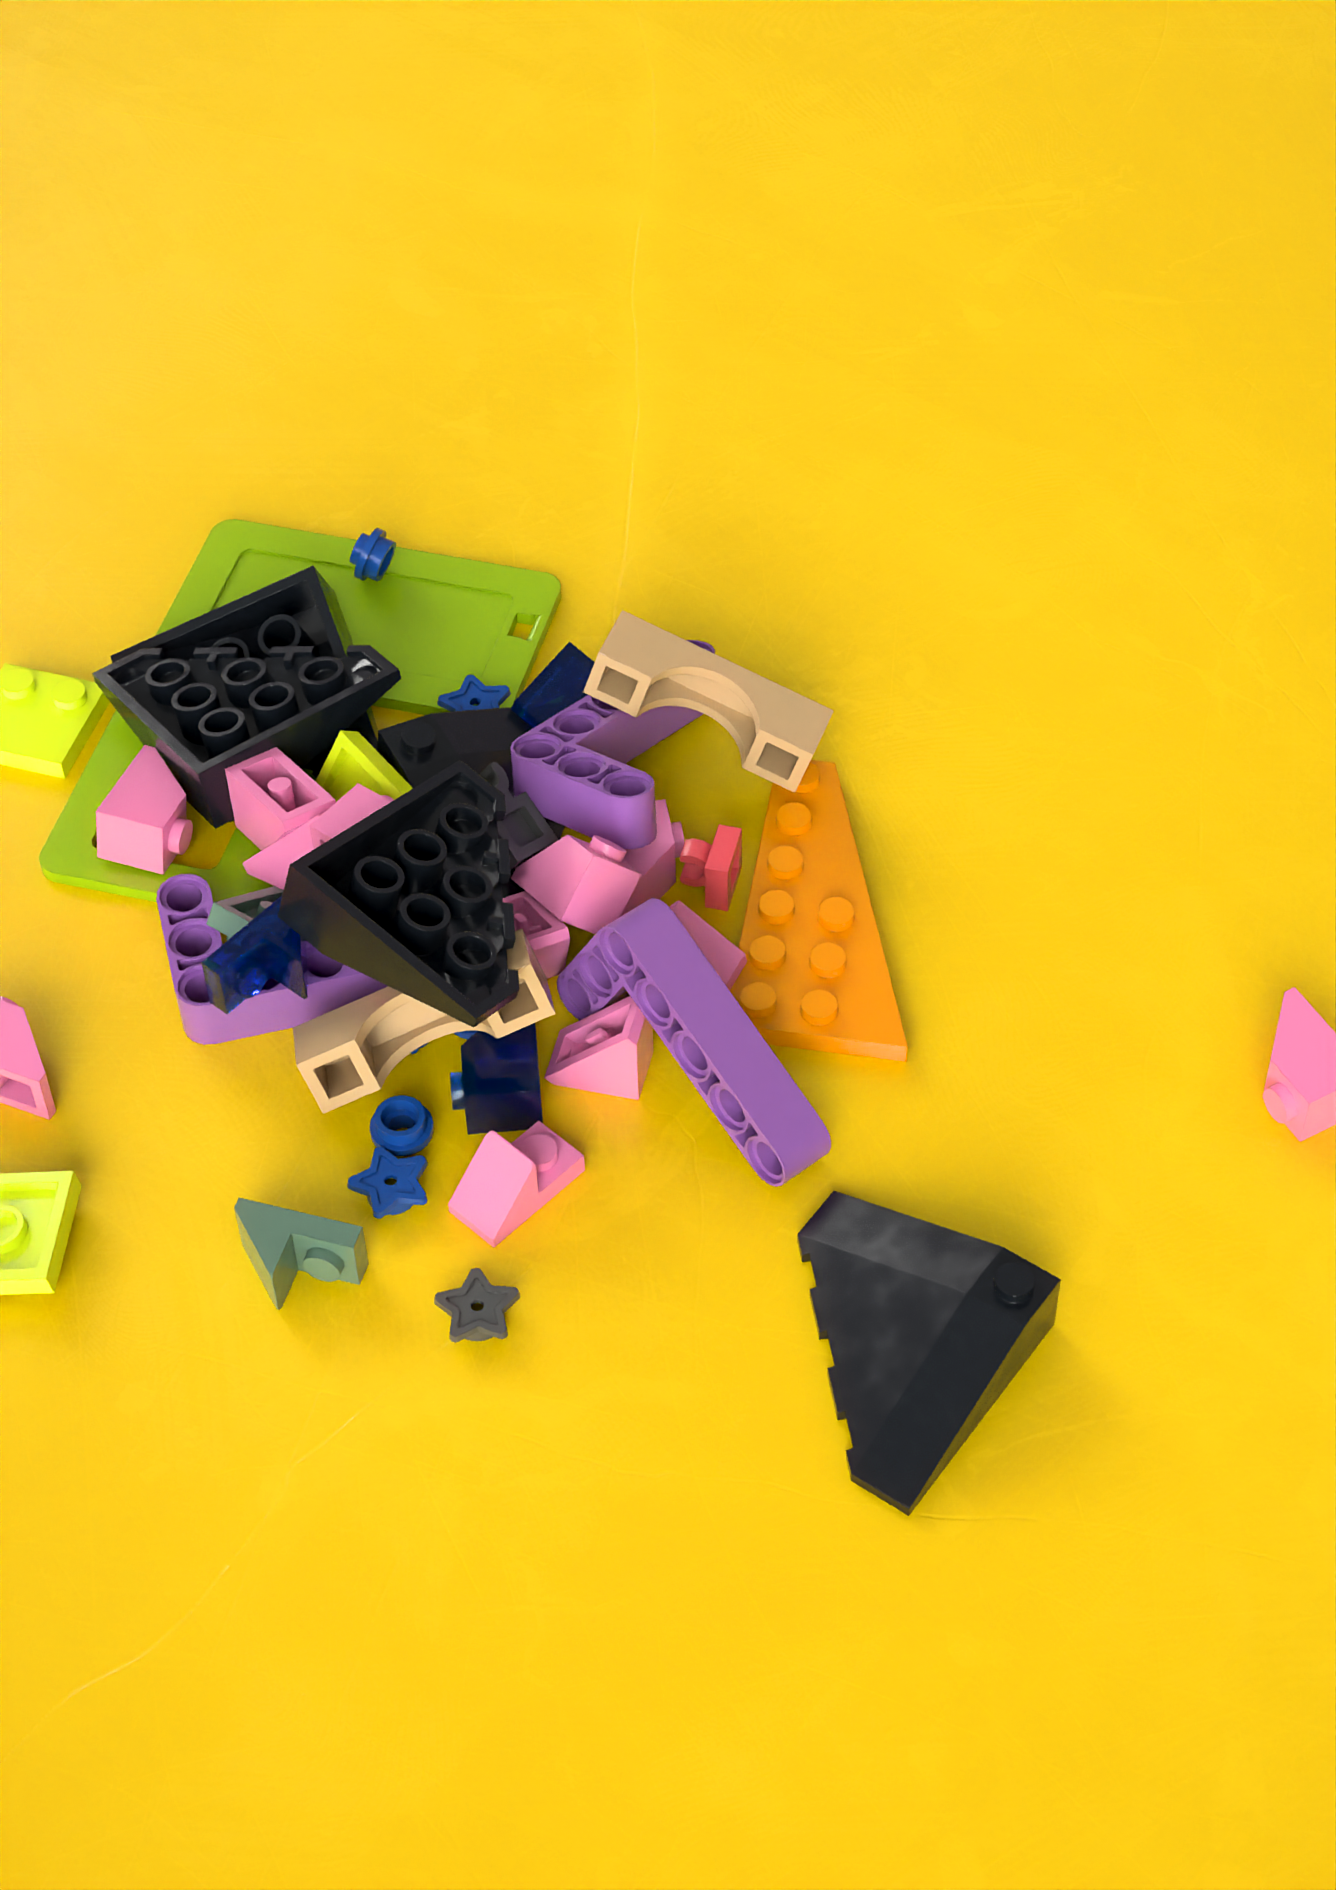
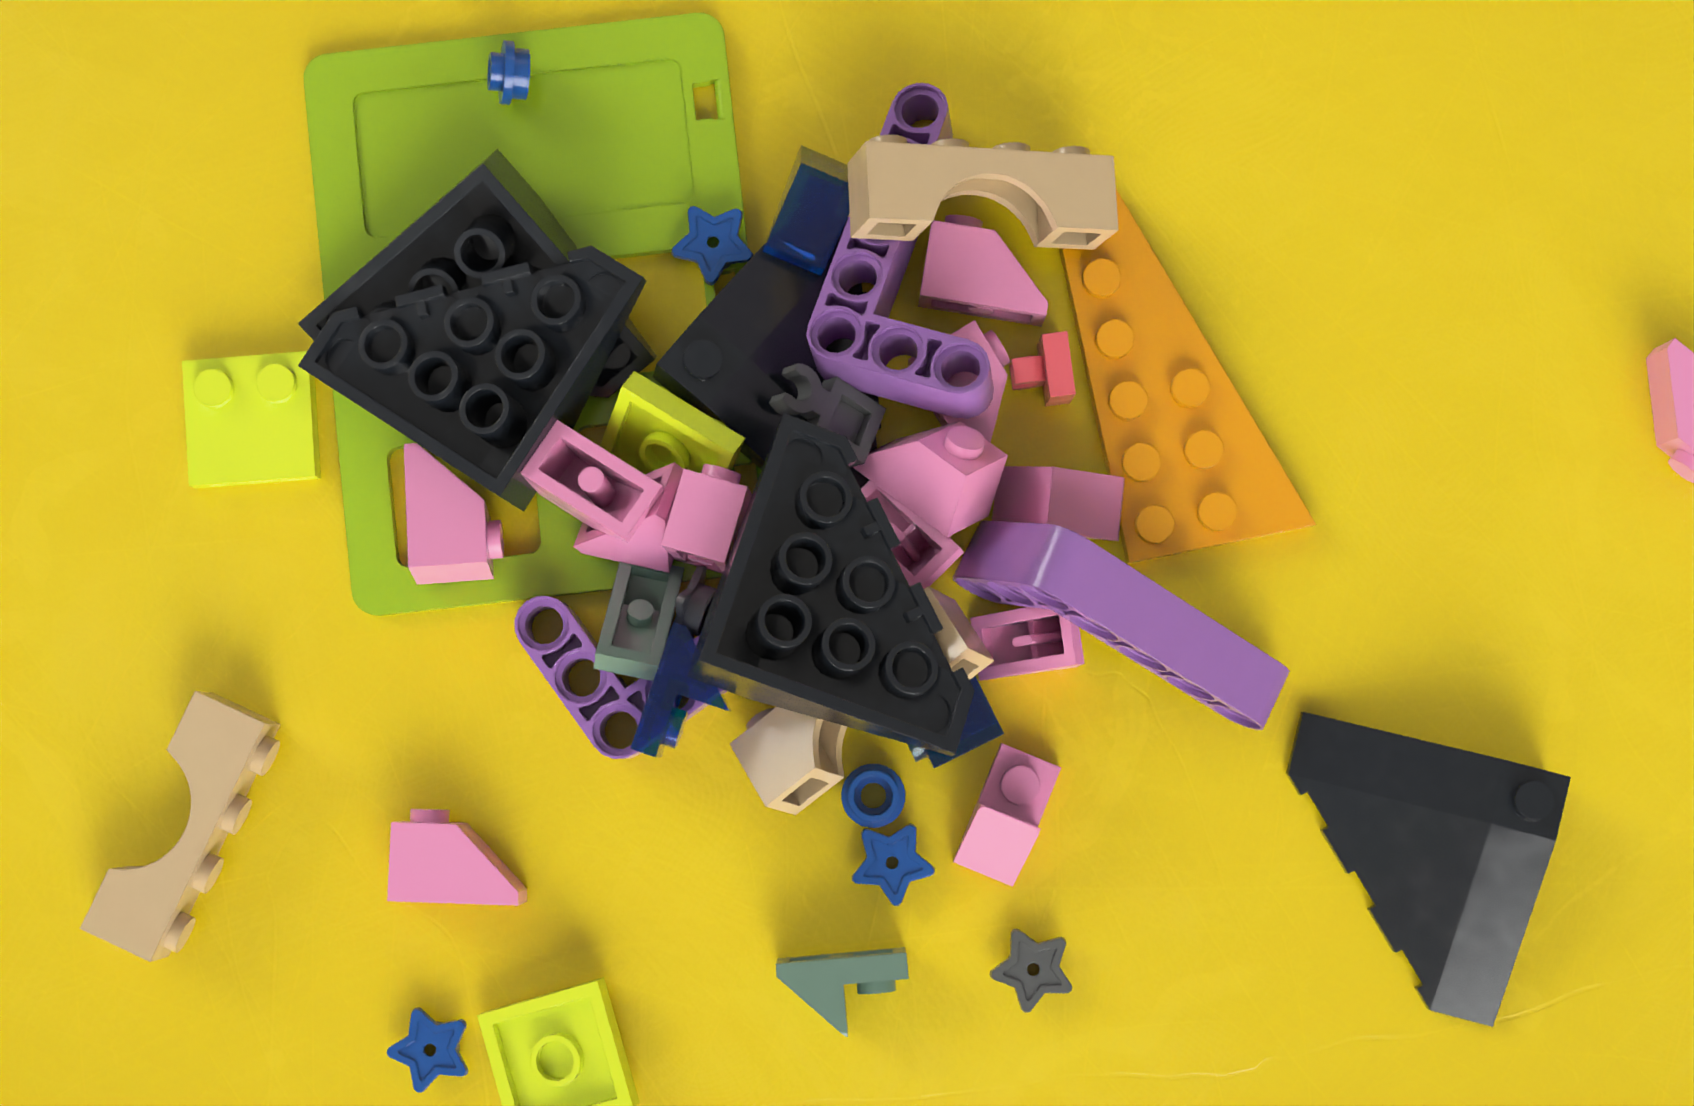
camera: 20 degrees left, 35 degrees up
(690, 781) = (977, 275): none -> bright pink slope

